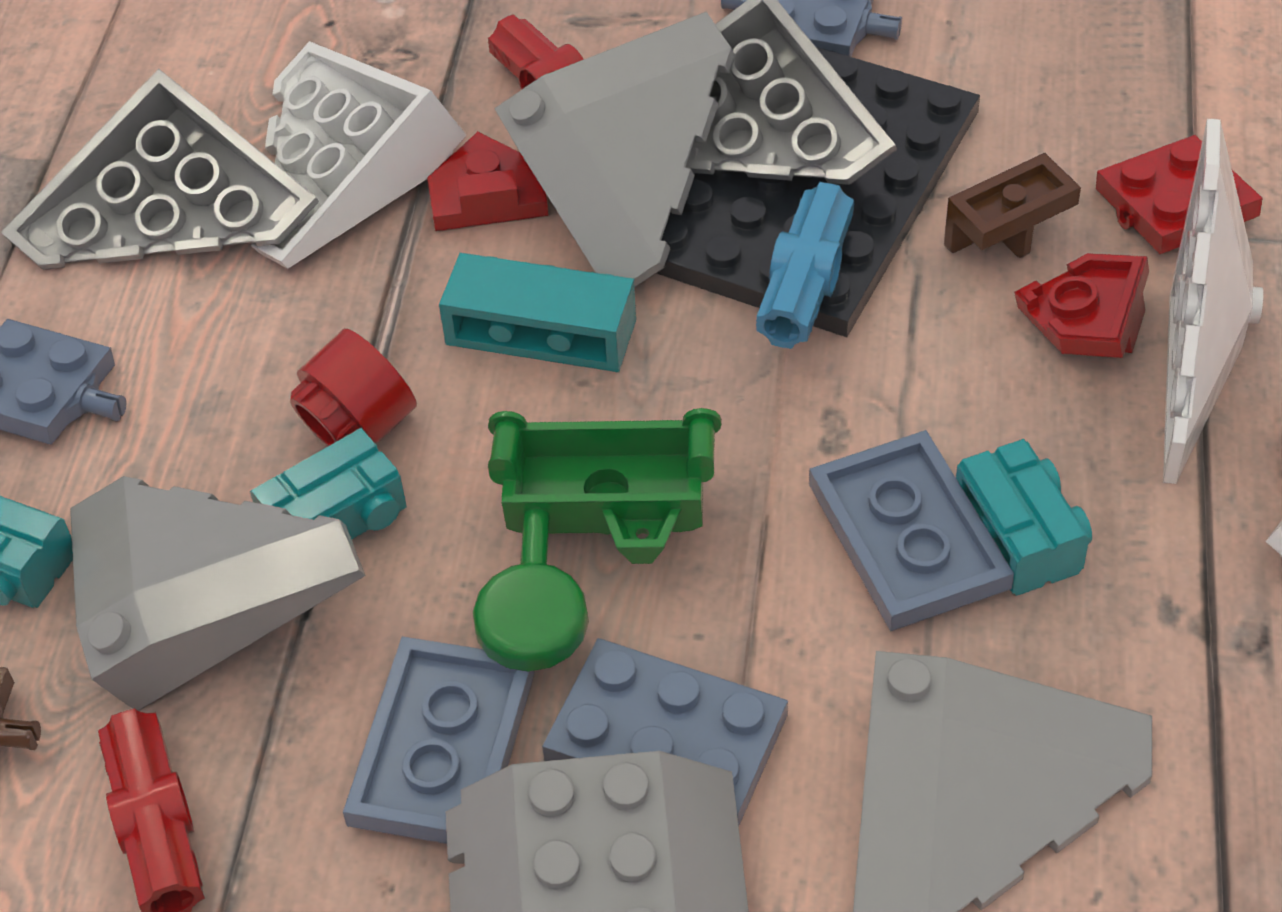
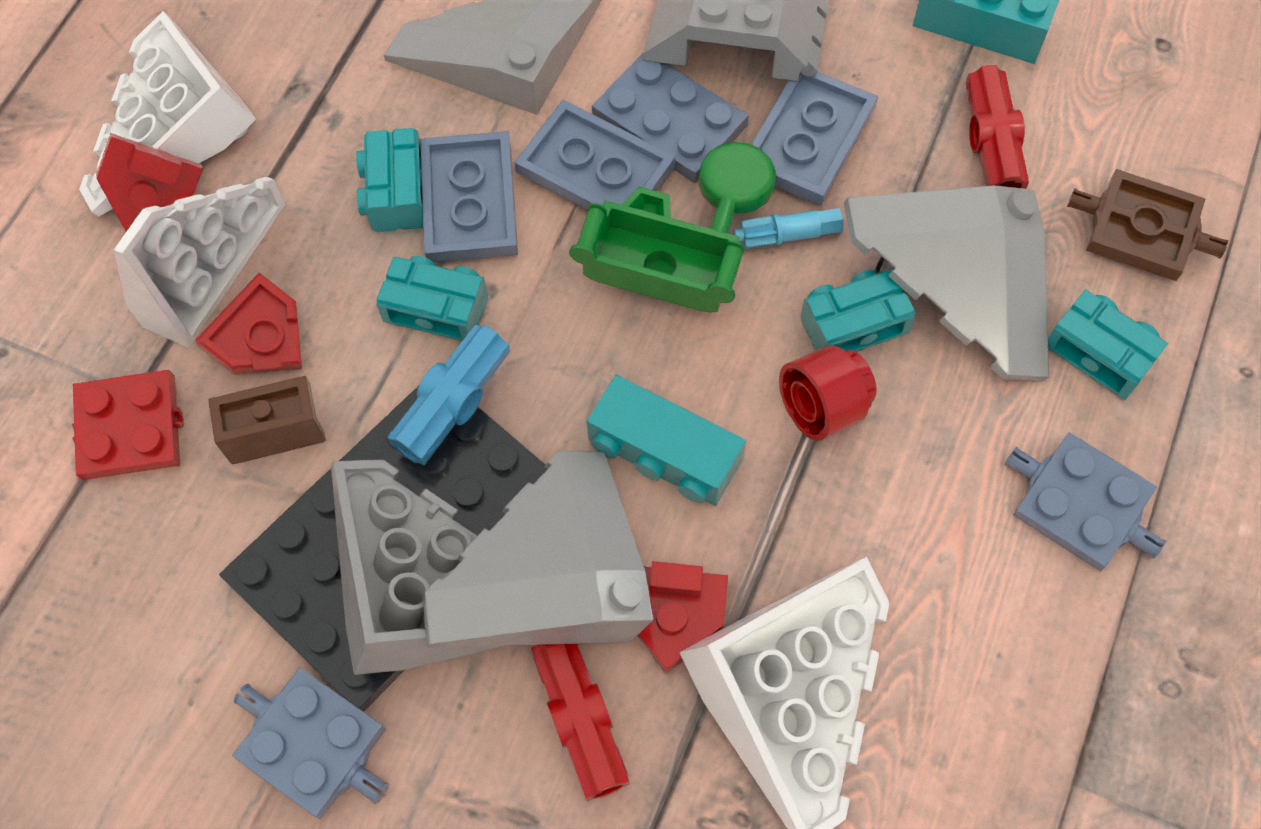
camera: 165 degrees left, 15 degrees up
(159, 182) = (961, 682): light grey slope -> none
(436, 602) = (788, 228): none -> medium azure piece
(749, 615) = (591, 159): none -> sand blue plate
(888, 387) = (432, 297): none -> teal brick

